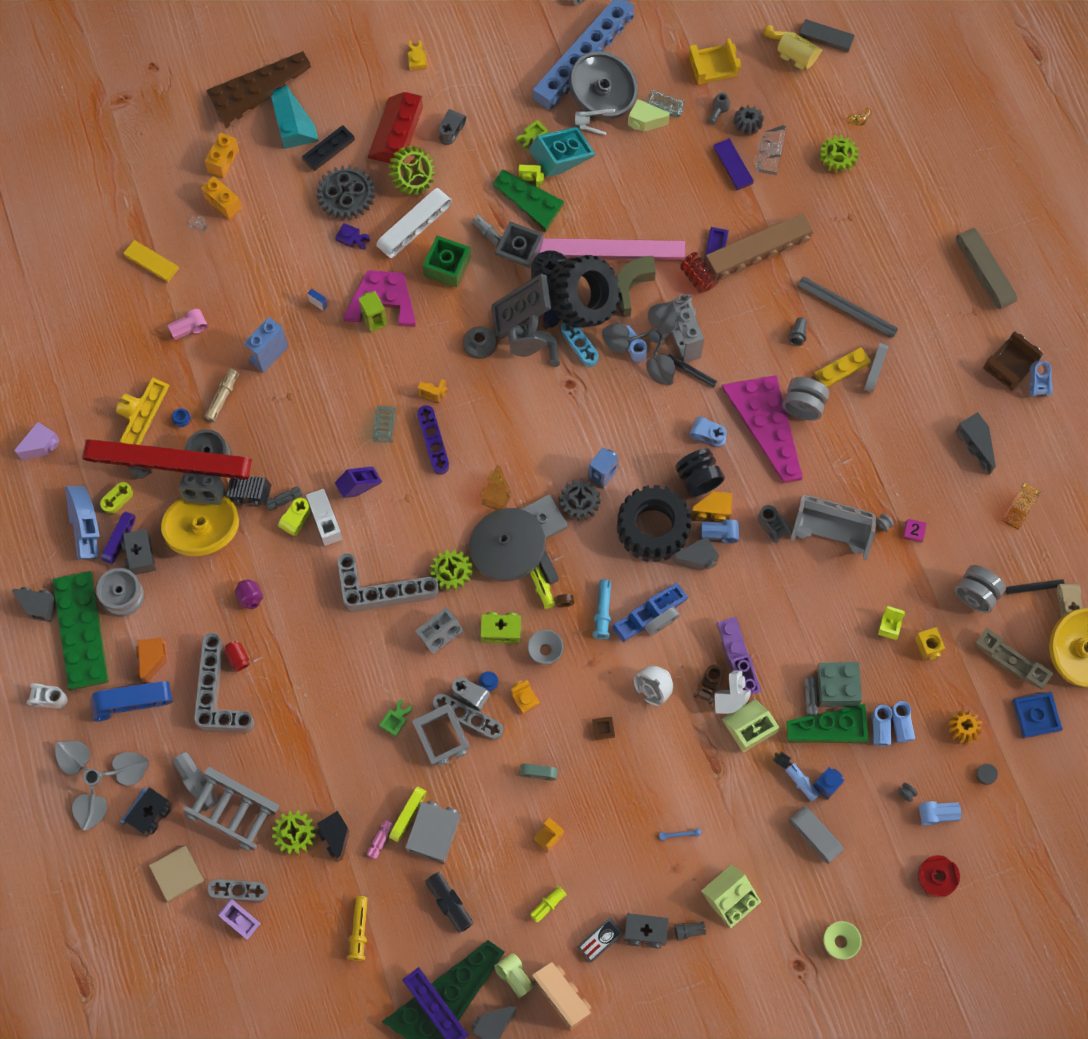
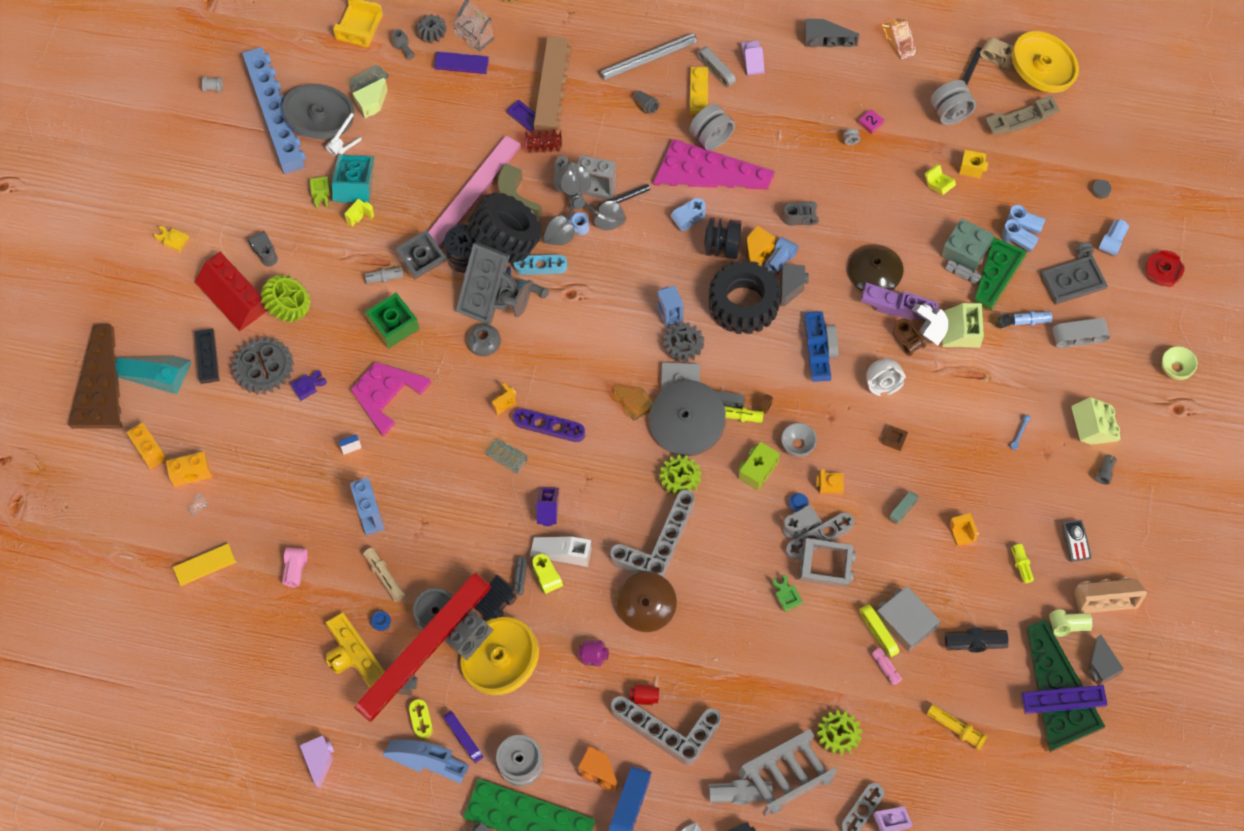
camera: 55 degrees left, 5 degrees down
(144, 561) = (484, 717): dark grey brick -> none
(327, 612) = (661, 599): none -> reddish brown dish
(335, 833) = (860, 699): black slope -> none
(372, 311) = (397, 403): lime brick -> none
(414, 223) = (333, 328): white beam -> none
(439, 630) = (731, 513): light grey brick -> none
(532, 200) = (383, 225): green wing -> none
(602, 617) = (799, 383): medium azure pin -> none
(656, 925) = (1093, 491): dark grey brick -> none
(764, 631) = (863, 269): none -> dark brown dish
(829, 782) = (1044, 298): blue brick -> none
(835, 522) = (833, 166): light grey windscreen -> none
(870, 799) = (1073, 279): none -> dark grey tile
(909, 392) = (753, 57): none -> lavender slope
(957, 728) = (1056, 180): light orange gear -> none
(1037, 715) = (1074, 128): blue tile -> none

